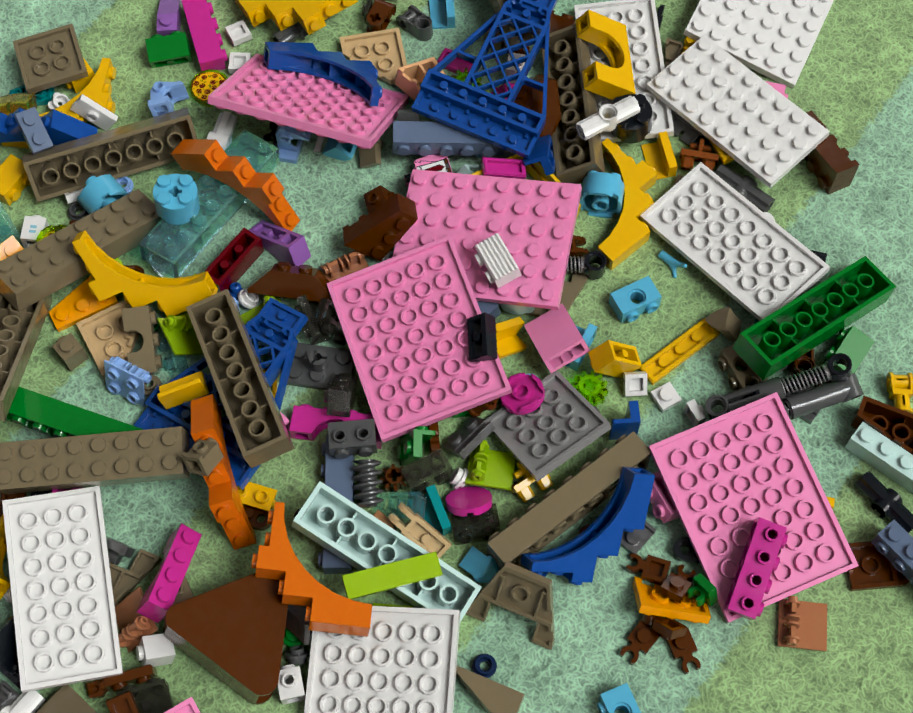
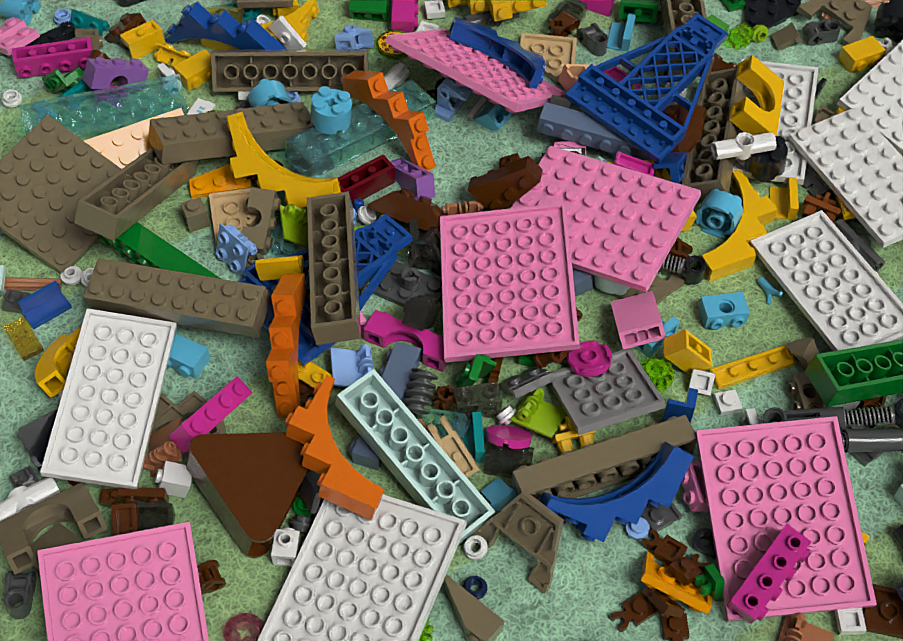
camera: 15 degrees right, 10 degrees down
(33, 130) = (229, 30): sand blue plate -> none
(118, 550) = (173, 387): flat silver tile -> none
(121, 513) = (188, 357): none -> medium azure brick
(202, 457) = (274, 316): dark tan brick -> none
(291, 474) = (350, 365): none -> light blue hinge
(352, 438) = (418, 349): dark grey brick -> none
(372, 156) = (517, 127): dark tan tile -> none
(391, 575) = (412, 472): lime tile -> none
(464, 625) = (472, 541): none -> white plate
(482, 338) = (566, 293): black slope -> none
(497, 260) = (602, 233): white brick -> none
(507, 339) = (590, 307): yellow panel -> none
(622, 558) = (638, 531): none -> light blue plate
(838, 587) = (850, 621): none -> white plate

